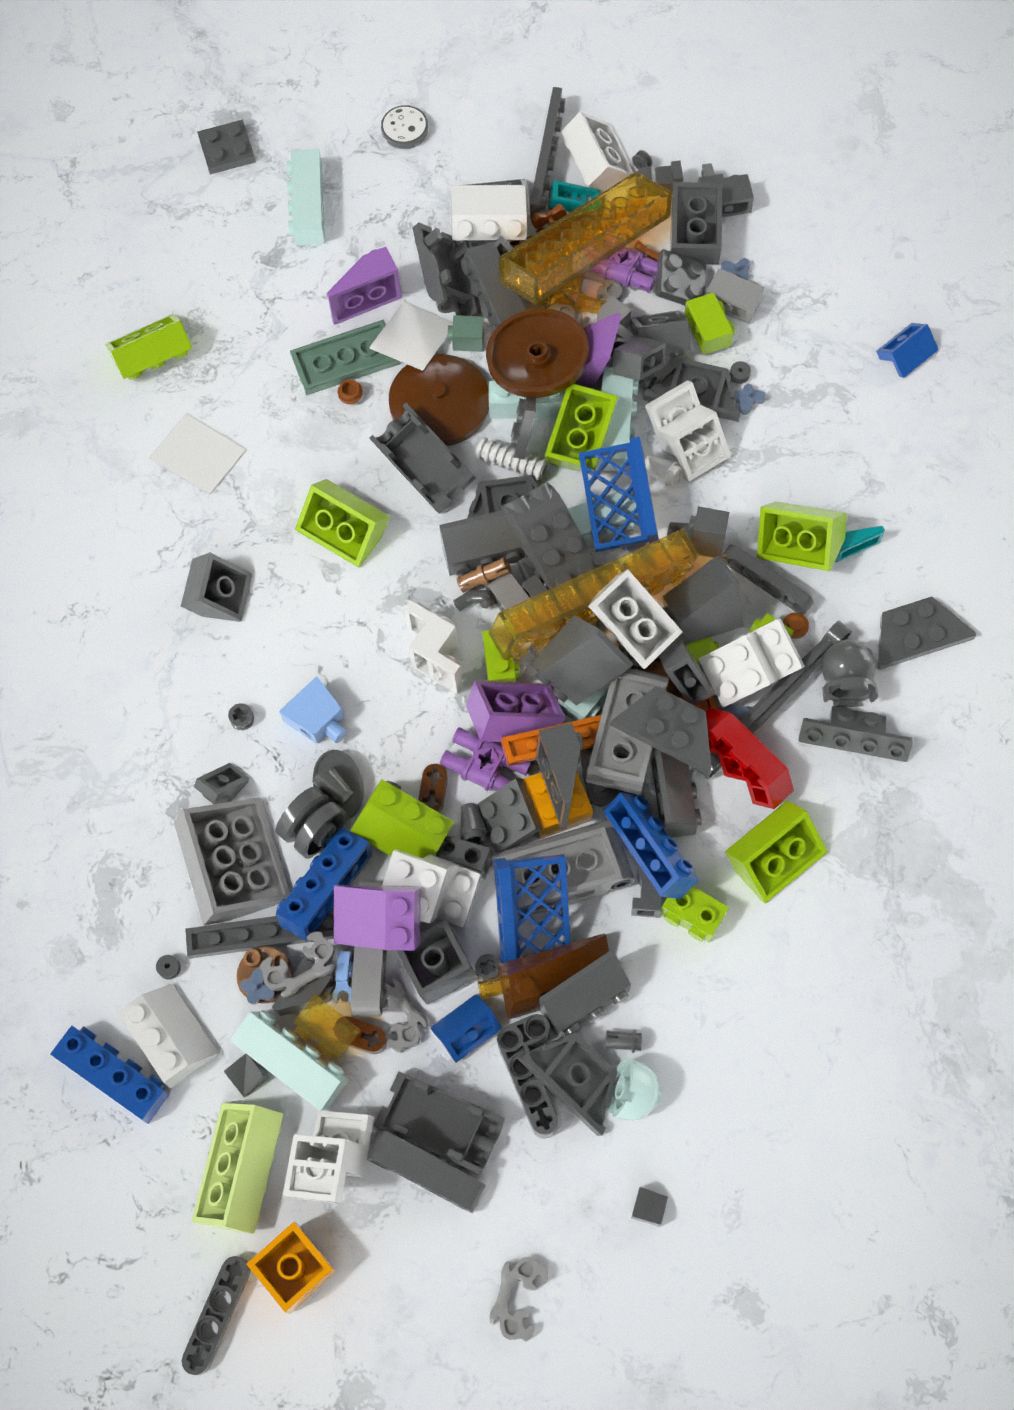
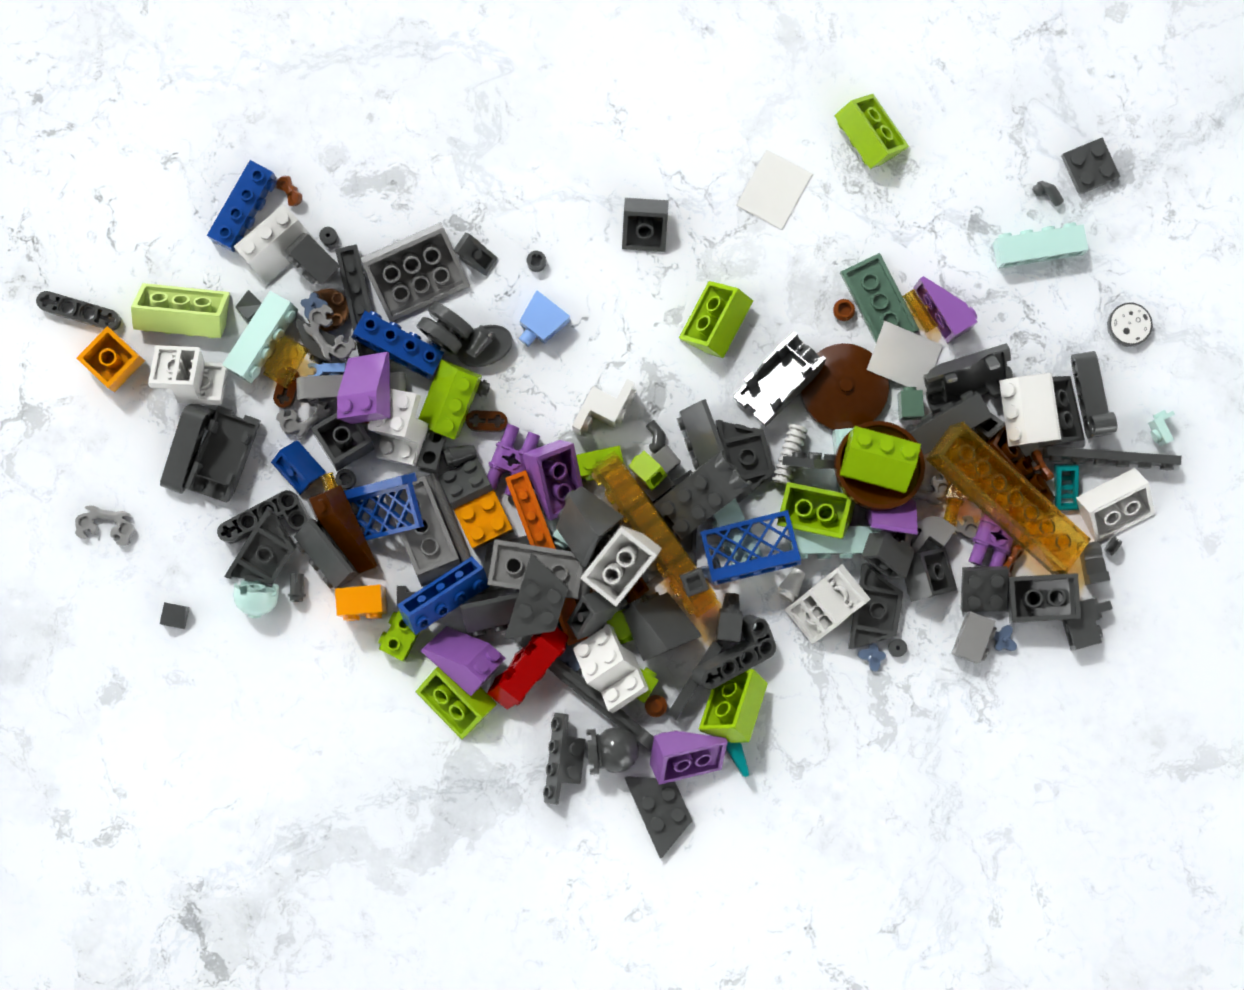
camera: 80 degrees right, 15 degrees up
(90, 1015) = (285, 184): none -> dark orange piece
(196, 979) = (311, 258): none -> dark grey brick
(245, 184) = (1050, 190): none -> dark grey arm
(362, 316) = (919, 310): none -> clear yellow pin
(480, 164) = (1091, 396): none -> dark grey beam
(483, 574) = (675, 442): medium nougat pin -> none
(513, 593) = (647, 470): none -> lime brick
(520, 107) = (1160, 431): none -> light aqua bracket
(531, 344) = (880, 459): none -> lime slope
(558, 759) = (497, 518): dark grey slope -> none
(650, 948) = (361, 601): none -> light orange brick
(657, 549) = (694, 582): none -> dark grey tile
(709, 323) = (940, 616): lime brick -> none
(729, 831) = (463, 658): none -> medium lavender slope
(745, 526) = (711, 673): none -> dark grey beam
(857, 592) = (685, 755): none -> medium lavender slope
(909, 348) = (935, 796): blue panel -> none

